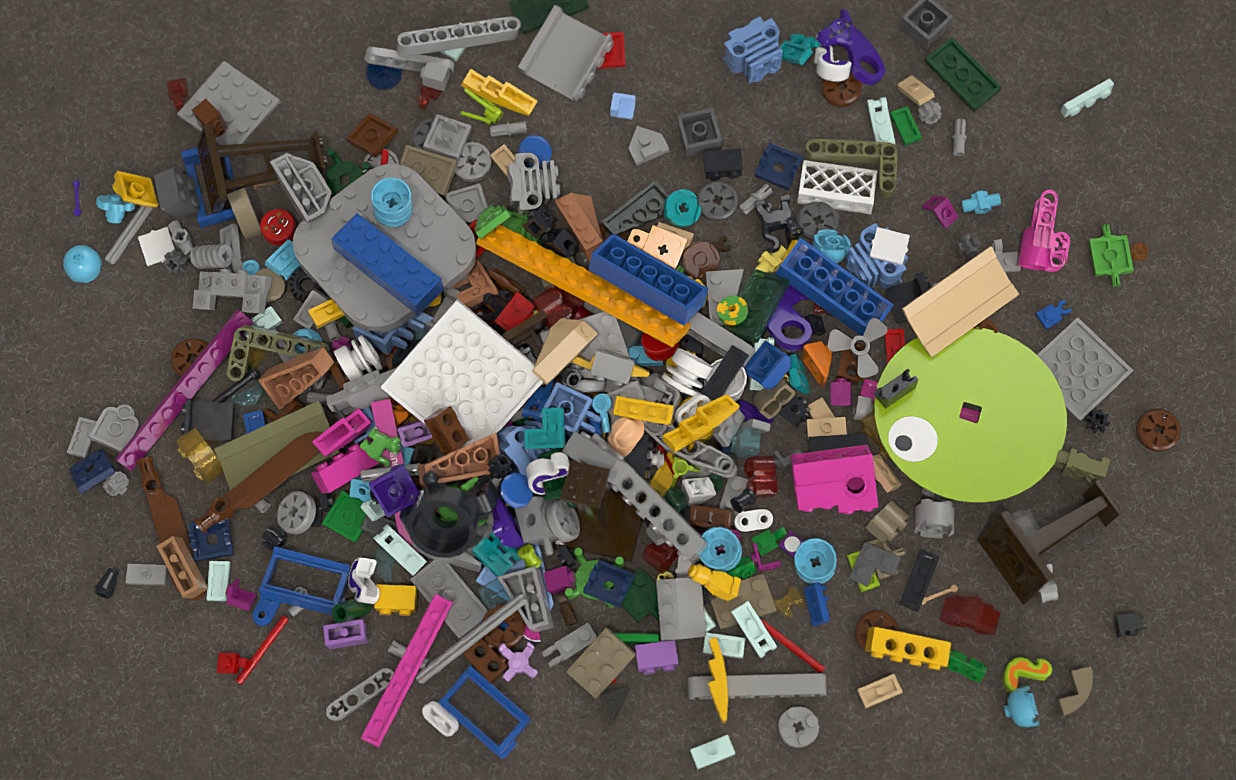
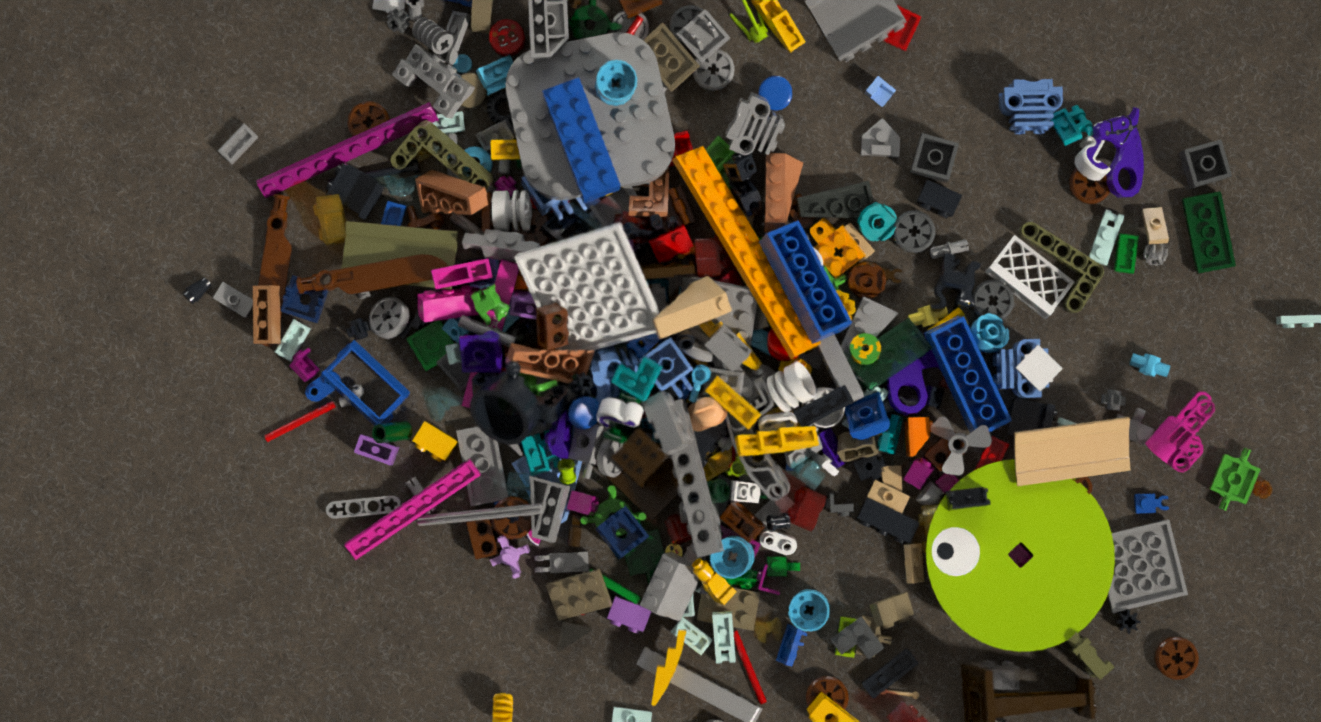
camera: 30 degrees right, 15 degrees up
(102, 469) = (239, 187): dark blue piece -> none
(115, 427) = (271, 150): light grey plate -> none
(116, 484) = (246, 203): light grey gear -> none
(230, 662) = (268, 419): red plate -> none
(360, 581) = (412, 412): white animal -> none
(400, 550) = (459, 399): light aqua plate -> none
(440, 718) = (419, 565): white plate -> none
(467, 202) = (688, 109): light grey tile -> none
(490, 219) = (698, 143): bright green plate -> none
(502, 158) = (744, 85): tan plate -> none
(508, 129) = (763, 55): light grey axle -> none
(509, 743) = (462, 540): blue piece -> none
(565, 557) = (598, 485): black plate -> none
(773, 155) = (991, 216): dark blue piece -> none
(790, 544) = (799, 581): tile -> none
(835, 478) = (866, 549): dark pink piece -> none
(934, 518) = (932, 629): light grey brick -> none
(942, 210) = (1109, 352): magenta bracket -> none
(959, 138) = (1167, 292): light grey axle -> none

